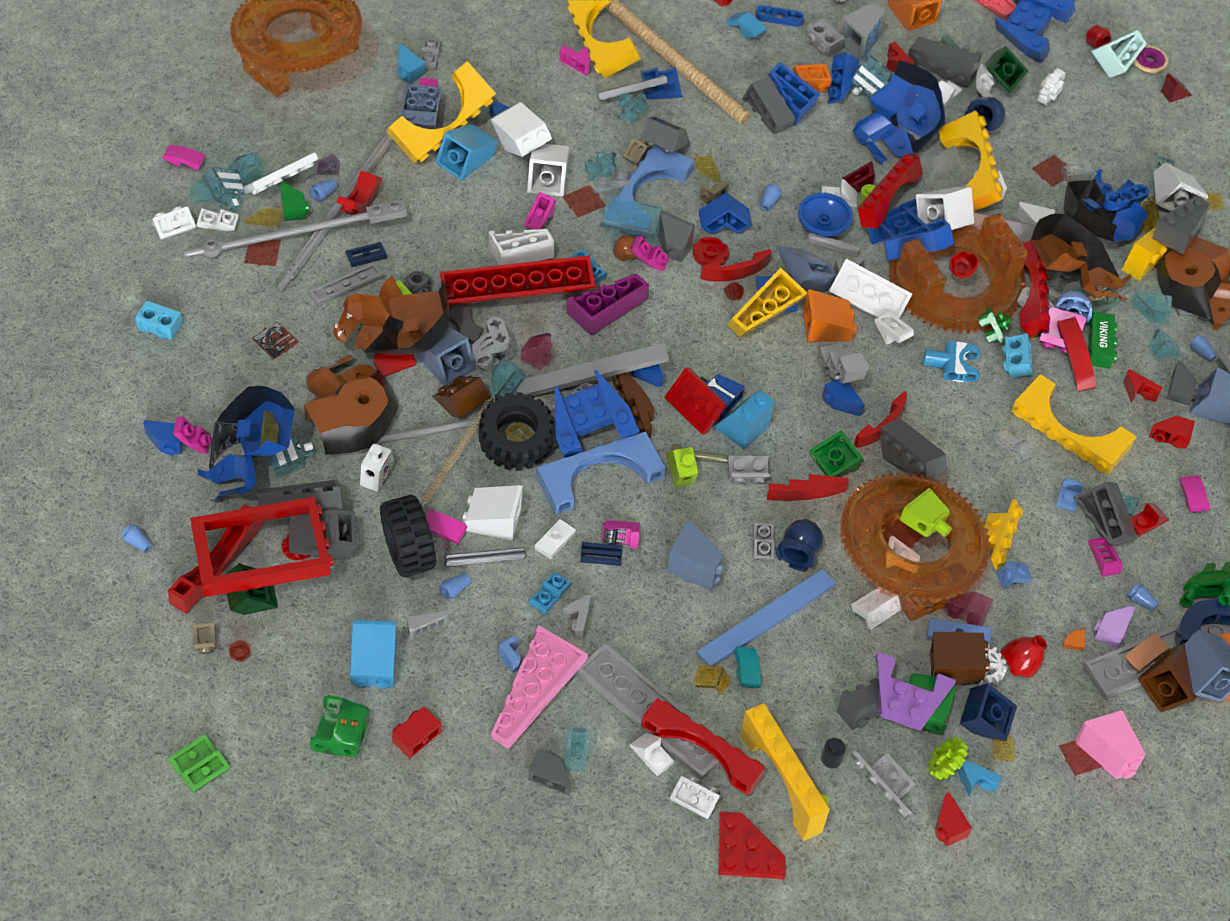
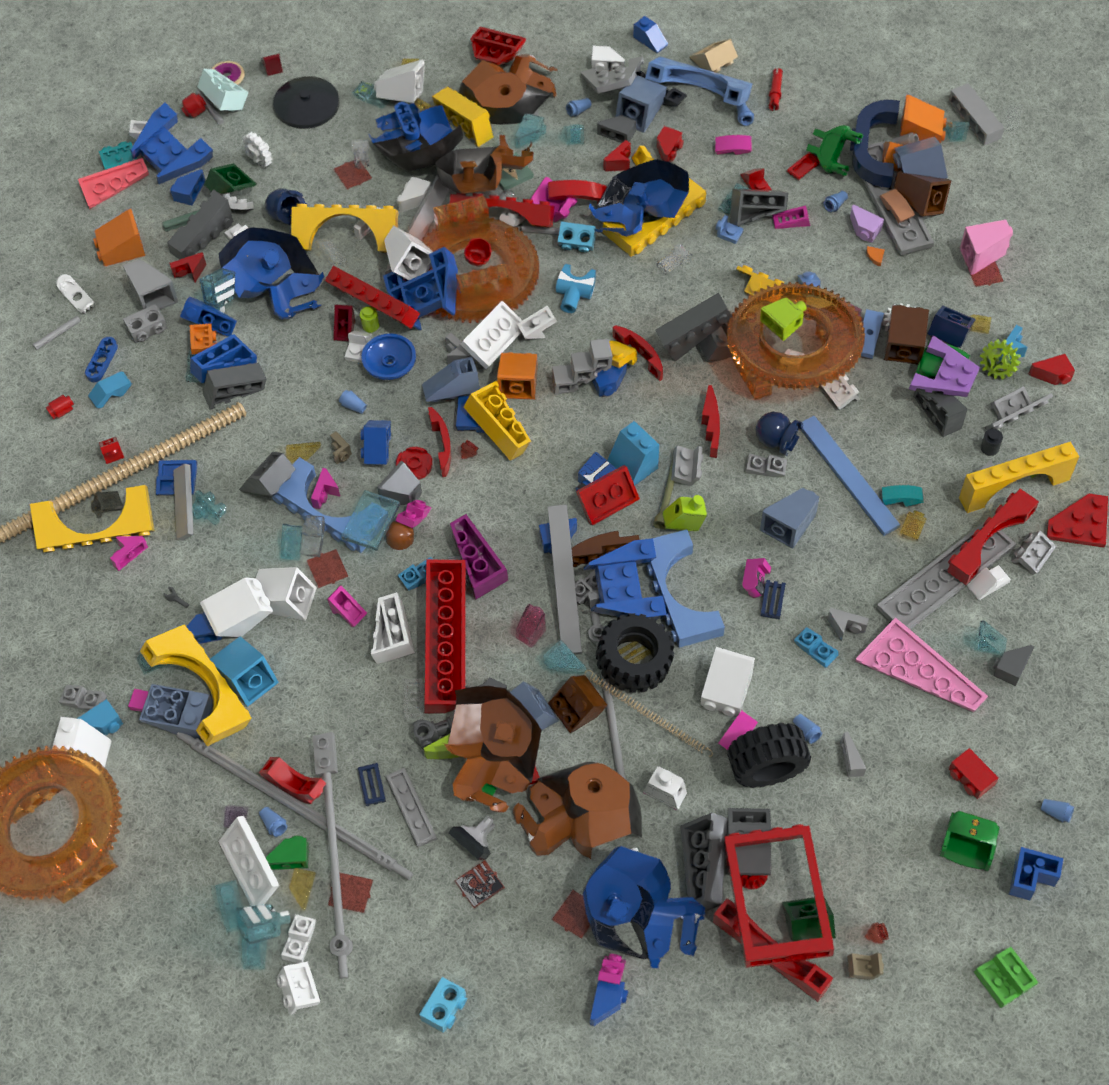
camera: 75 degrees left, 5 degrees up
(134, 536) = (736, 1034): medium blue cone -> none
(187, 156) = (195, 973): dark pink slope -> none
(269, 428) = (628, 882): clear yellow tile -> none
(309, 778) = (1032, 868): none -> blue brick
(315, 326) = (474, 838): none -> piece
(373, 653) = (892, 804): dark azure slope -> none
(376, 51) = (82, 737): none -> white slope
(382, 813) = (1057, 809): none -> medium blue cone
(485, 556) = (772, 693): axle -> none
(491, 344) = (524, 665): light grey piece -> none
(509, 654) = (888, 687): medium blue bracket -> none
(537, 98) = (173, 597): none -> dark grey hand
(555, 539) = (754, 637): white plate -> none
(621, 34) = (106, 502): none -> clear smoke bracket
(636, 151) = (271, 510): dark tan bracket -> none
(669, 184) = (324, 486): none -> dark pink slope
(681, 33) = (111, 450): none -> red slope
(833, 244) = (421, 356): light grey axle -> none
(836, 455) = (678, 392): green slope -> none
(873, 398) = (622, 354): none -> yellow slope
(991, 42) = (188, 187): none -> blue slope
(996, 332) = (542, 247): green hips -> none
(1024, 655) = (899, 287): red piece -> none
(1076, 303) = (526, 183): light blue cylinder -> none
(1095, 416) = (645, 190): none -> piece
(1102, 339) = (561, 170): green brick -> none
(1134, 124) = (306, 102): none -> black dish
(1147, 409) = (641, 155): none -> yellow tile
(1181, 224) = (455, 82): dark grey wedge -> none
(1183, 563) = (803, 166): none -> red tile

